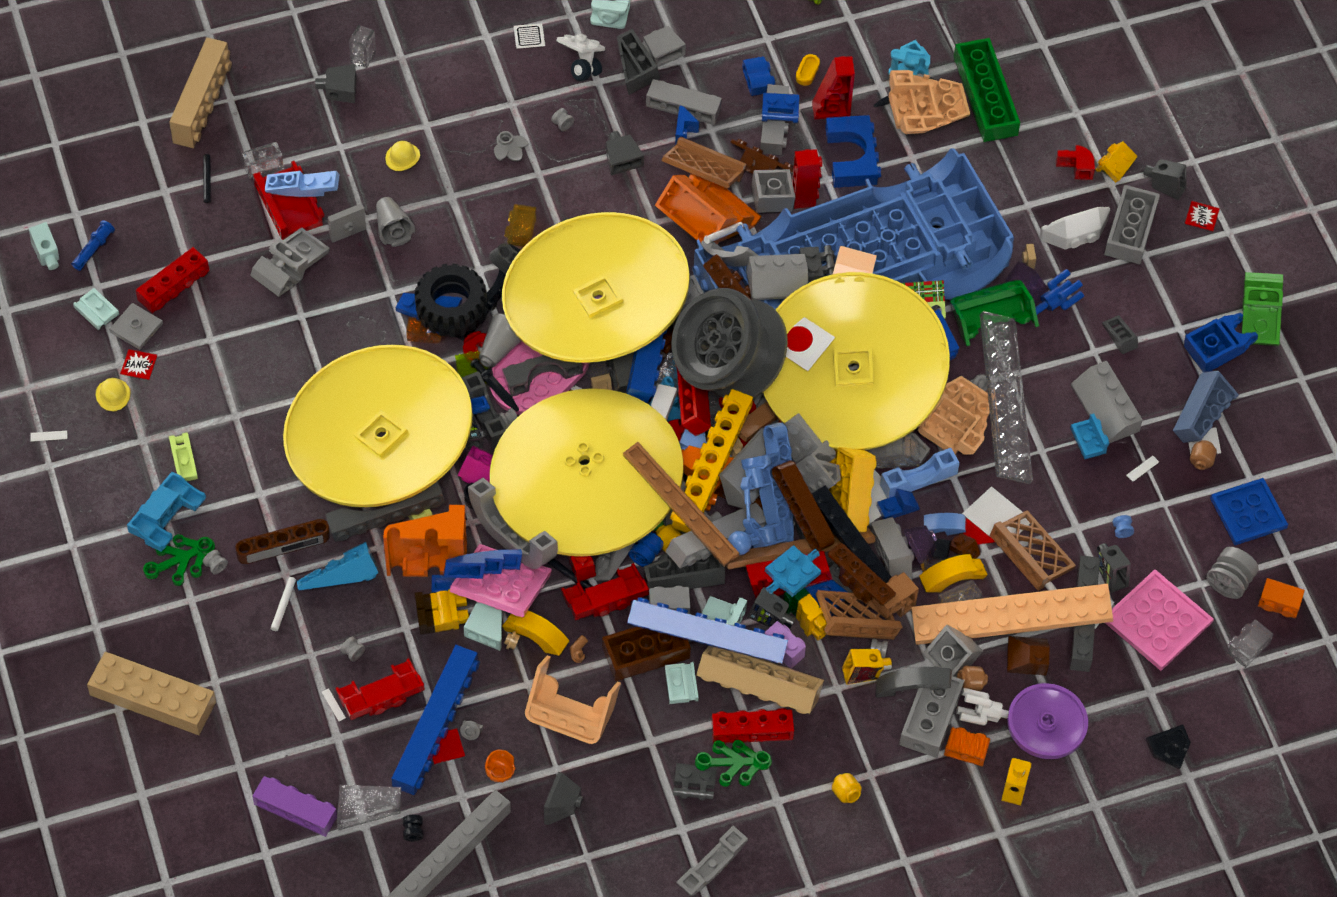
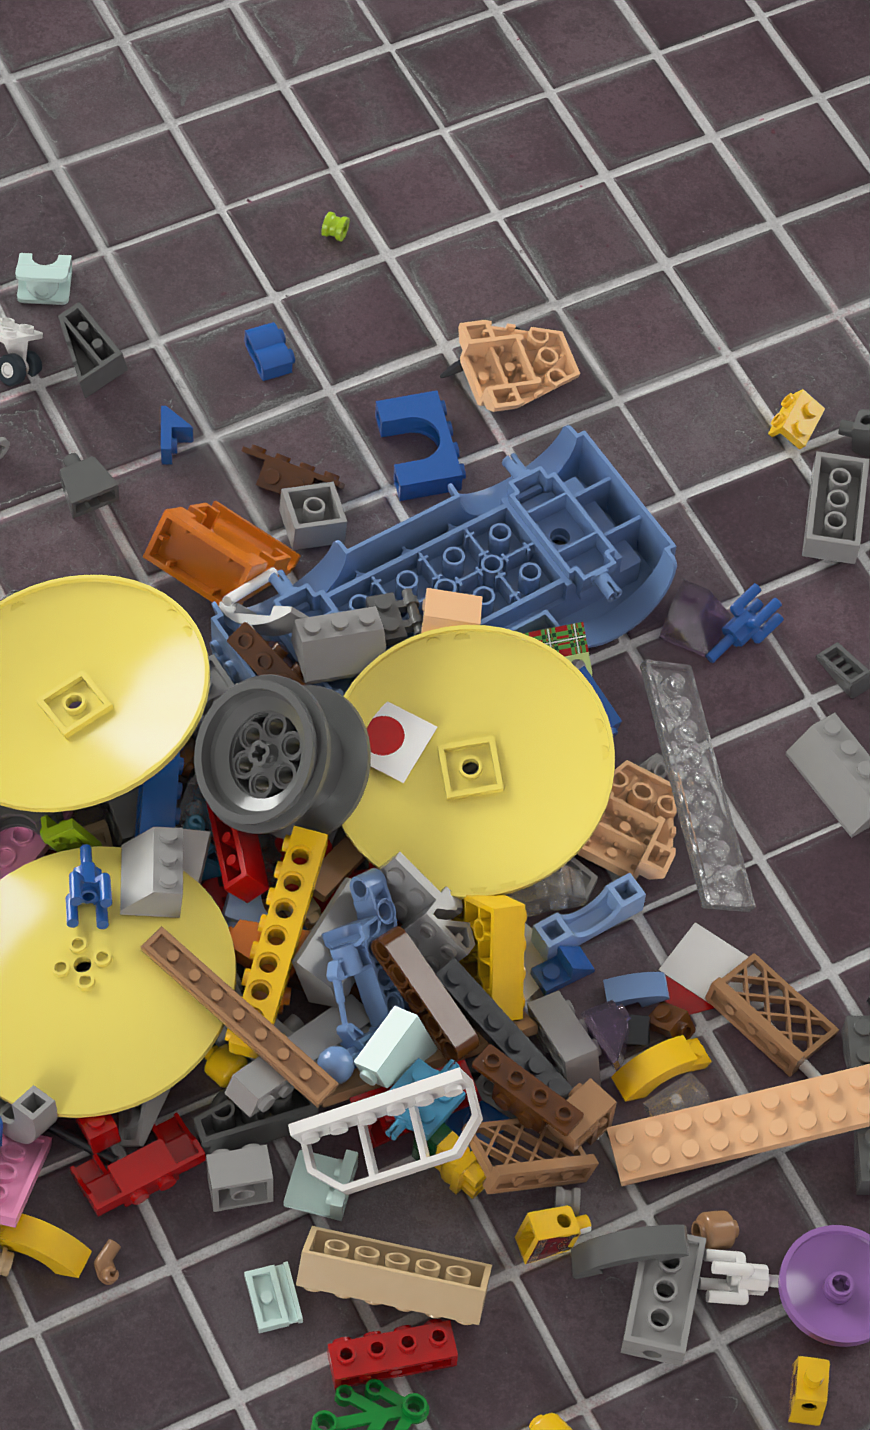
camera: 10 degrees left, 0 degrees up
(564, 714) = (99, 1372): light nougat windscreen -> none
(582, 379) = (65, 834): none -> lime bracket
(594, 412) = (88, 886): none -> blue plant
(636, 408) = (152, 873): none -> light grey slope
(641, 651) = (212, 1248): reddish brown brick -> none
(646, 549) = (192, 1091): blue wheel -> none
(664, 46) = (128, 322): light grey torso -> none
(669, 97) = (145, 395): light grey brick -> none
(707, 631) = (305, 1214): brick -> none
(709, 160) = (223, 487): medium nougat fence -> none
(769, 568) = (392, 1104): none -> white plate
(770, 609) = (396, 1153): dark grey torso -> none
(773, 130) = (301, 411): light grey brick -> none
(778, 537) = (394, 1048): none -> light aqua slope
(782, 104) = (307, 388): blue plate -> none
(795, 647) = (423, 1213): lavender brick -> none
(806, 178) = (360, 491): red brick -> none
(807, 69) = (338, 335): yellow tile -> none
(836, 90) = (386, 359): red wedge -> none
(912, 57) = (488, 303): medium azure piece -> none
(952, 650) = (678, 1191): light grey slope -> none
(967, 746) = (725, 1341): orange brick -> none
(986, 89) = (598, 337): green brick -> none
(1005, 299) = (674, 638): green windscreen -> none
(1028, 655) = (792, 1181): reddish brown slope -> none
(1029, 256) = (696, 569): tan plate -> none
(1076, 228) = (756, 523): white wedge -> none
(1080, 159) = (746, 422): red brick -> none
(1090, 437) = (828, 830): dark azure bracket -> none

